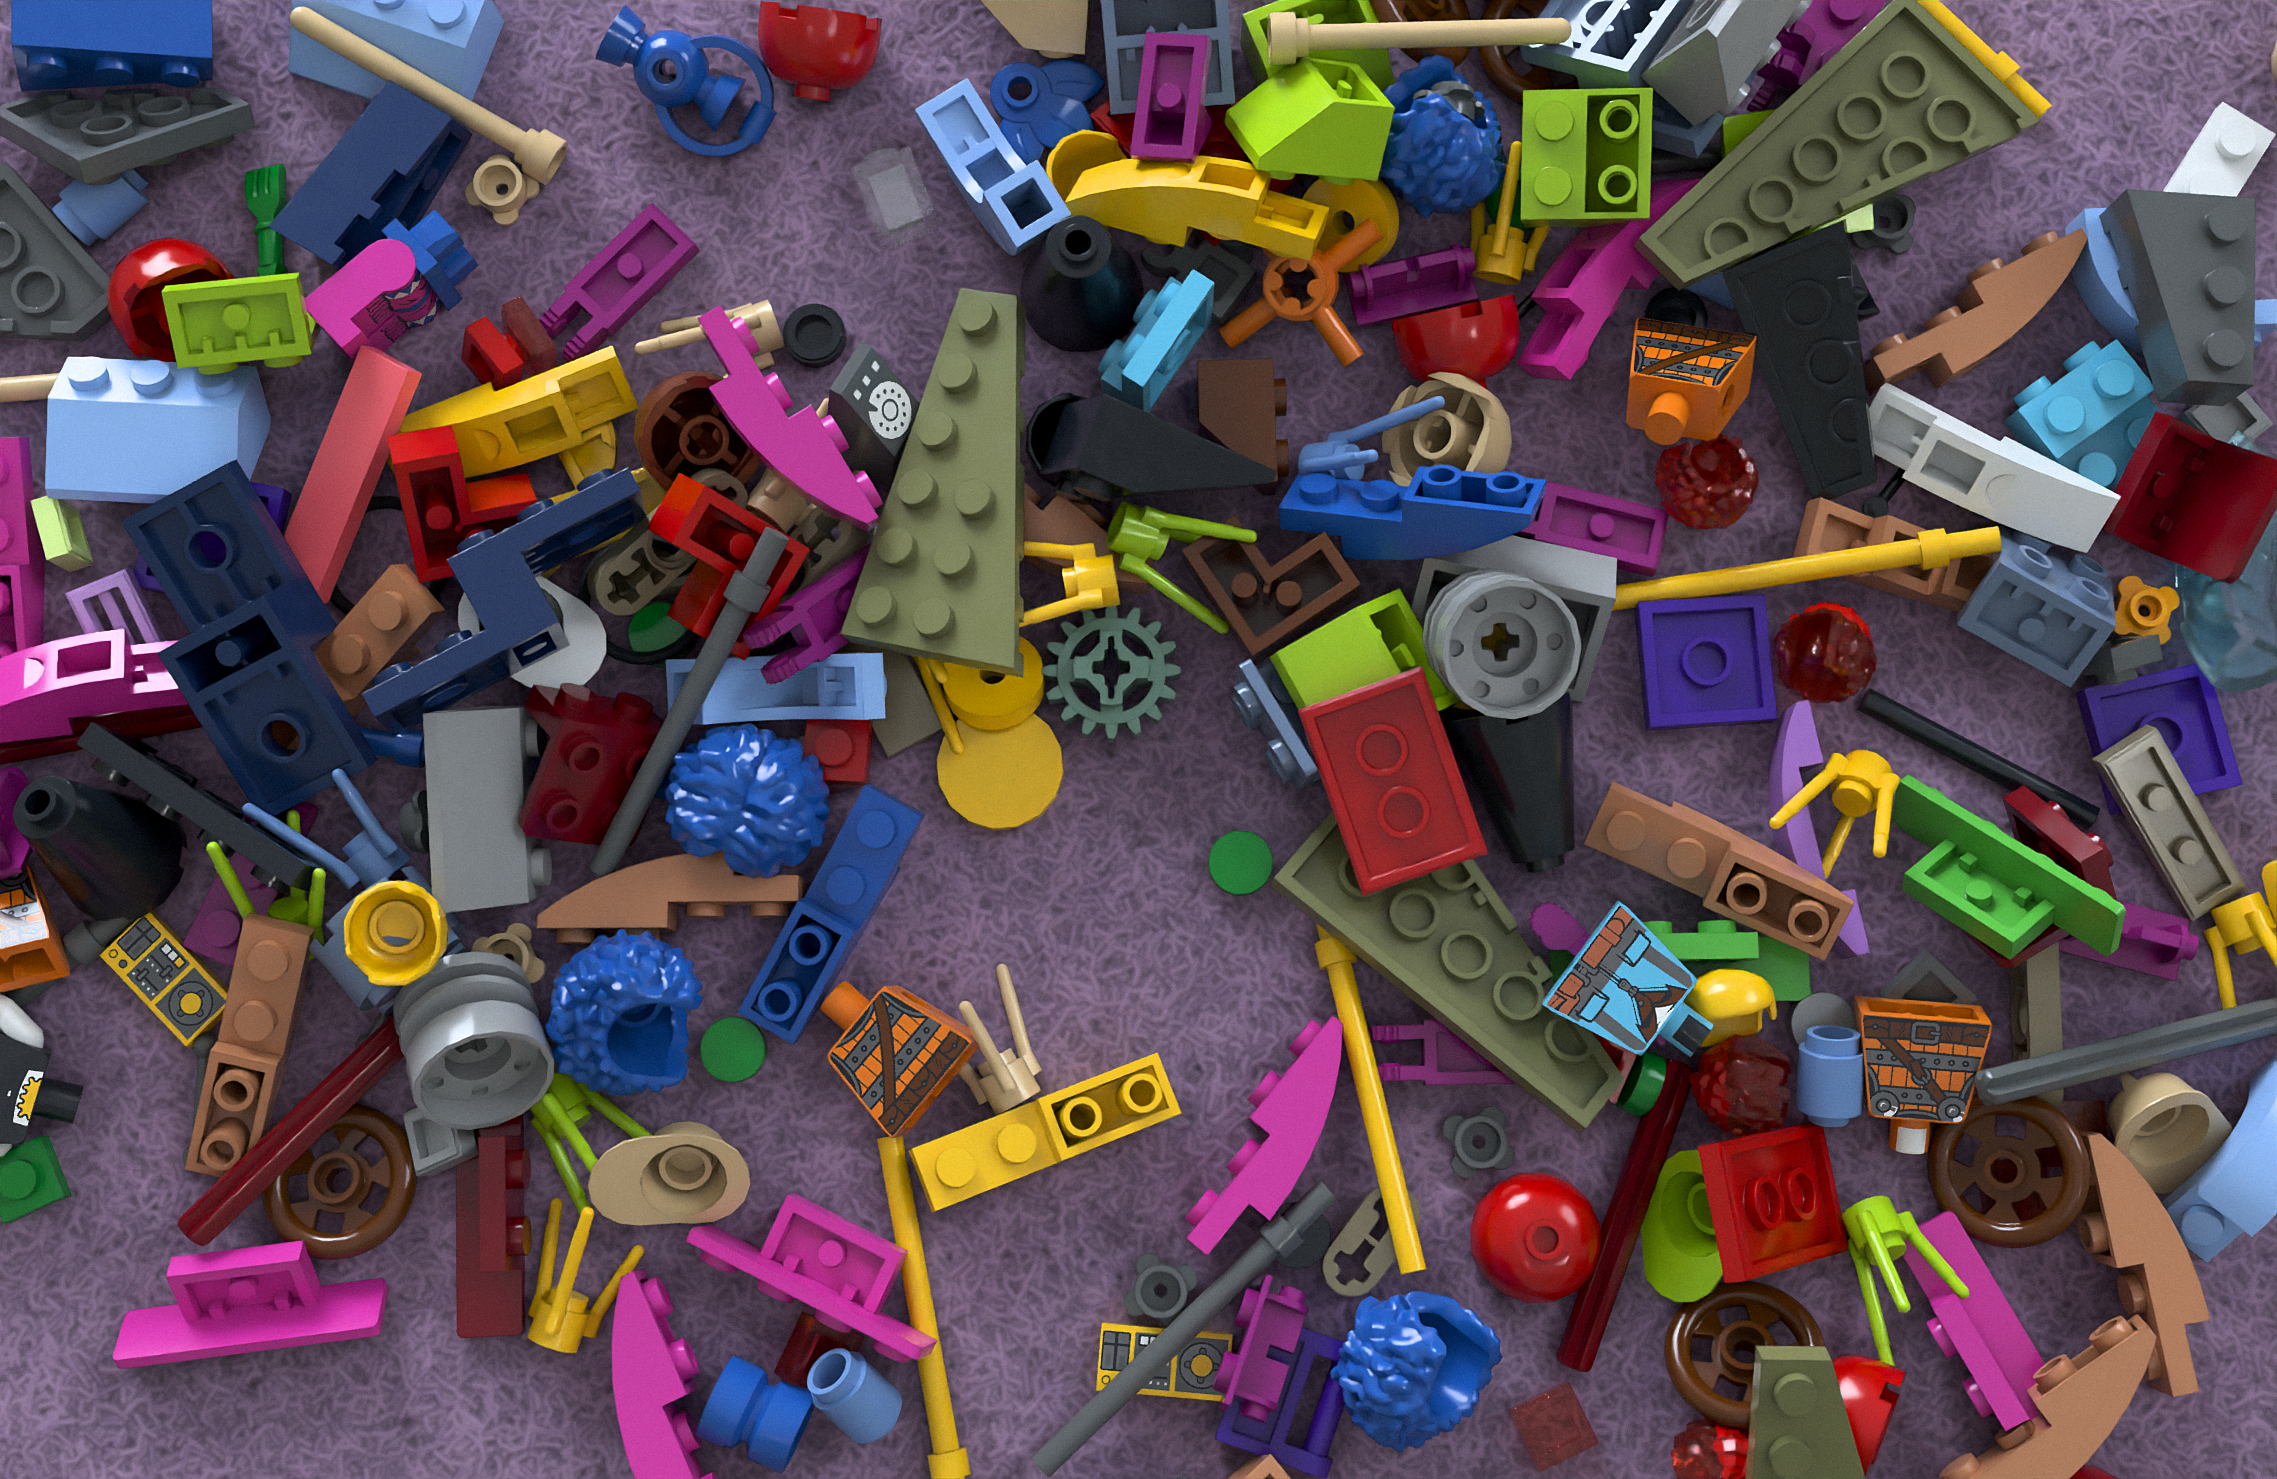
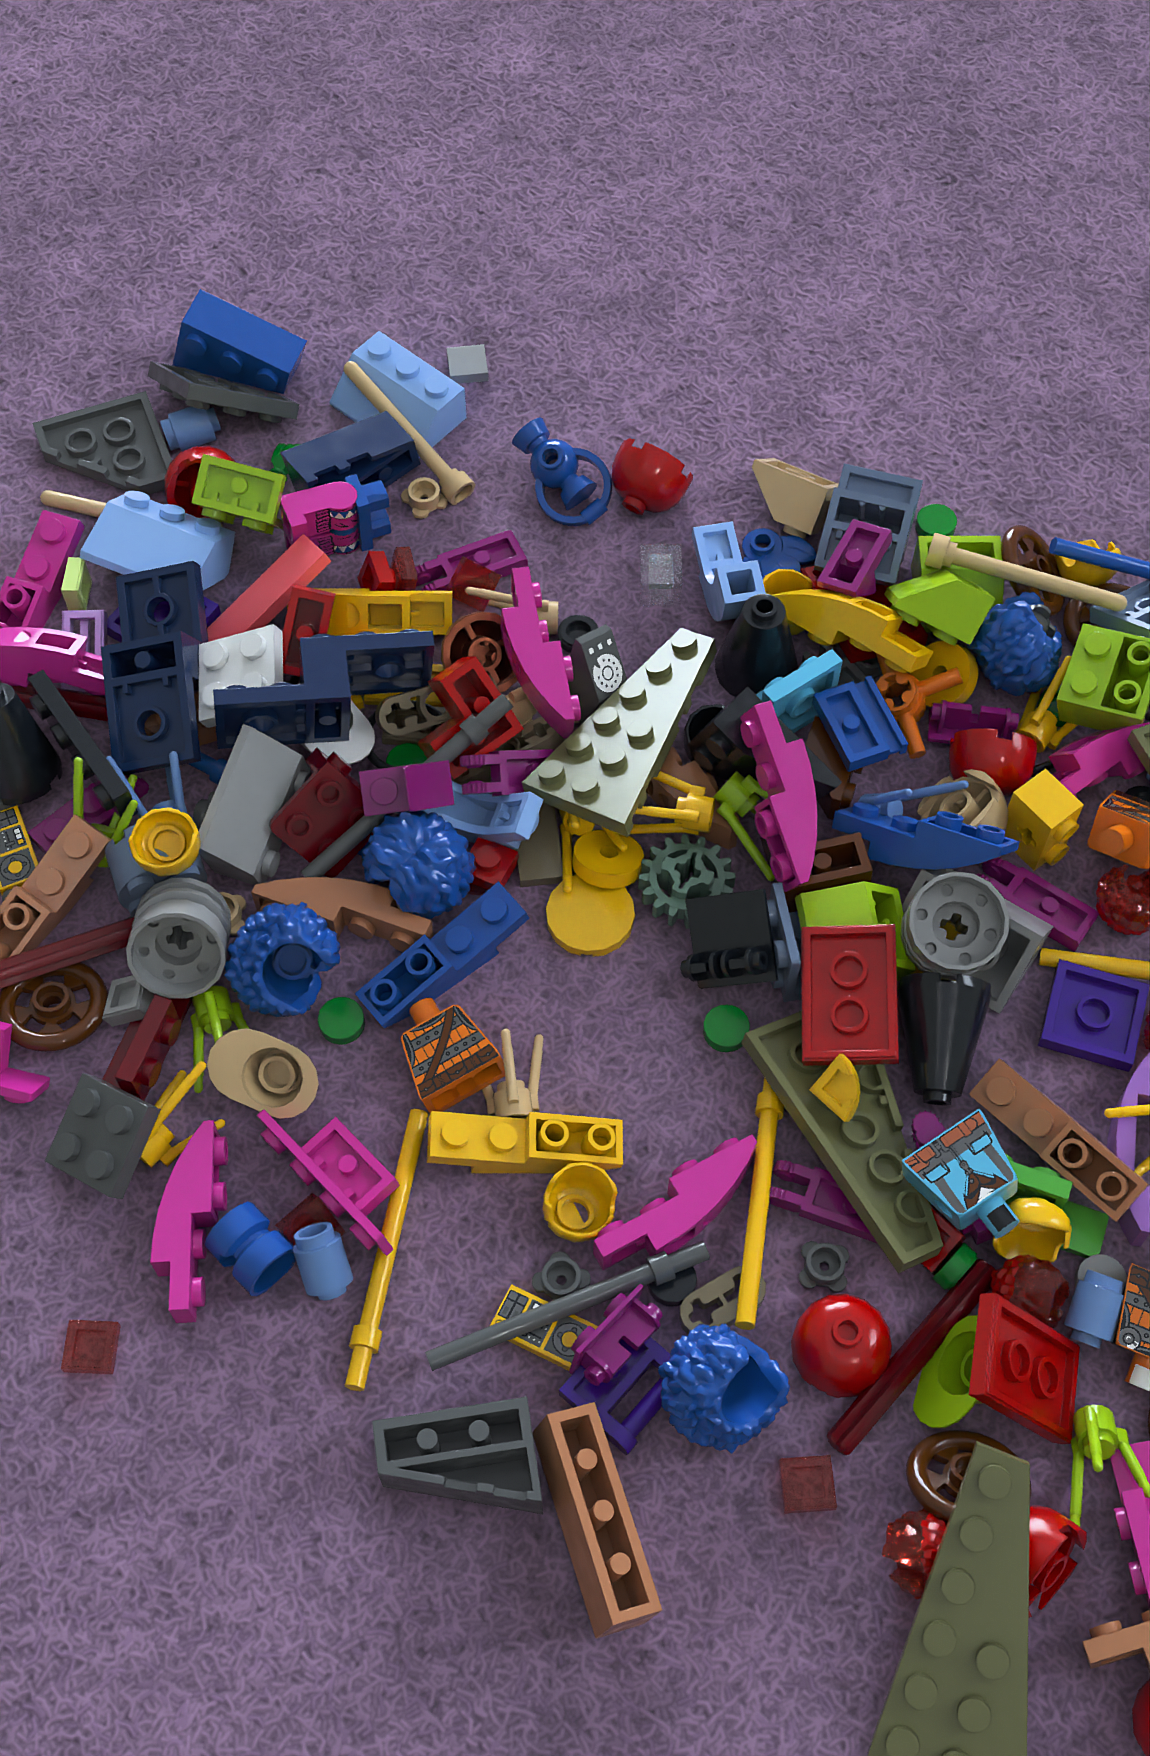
camera: 20 degrees right, 20 degrees down
(374, 612) = (239, 659): none -> white plate
(497, 1346) = (102, 1136): none -> dark grey plate
(633, 314) = (472, 575): none -> clear red tile
(691, 711) = (406, 788): none -> magenta slope
(1129, 1204) = (583, 1185): none -> yellow hair
(1205, 752) = (730, 940): none -> black hinge
(1228, 558) = (790, 811): none -> dark pink slope
(1265, 357) = (859, 723): none -> blue plate
(1424, 918) = (839, 1088): none -> yellow tile
(1558, 410) = (1042, 819): none -> yellow brick

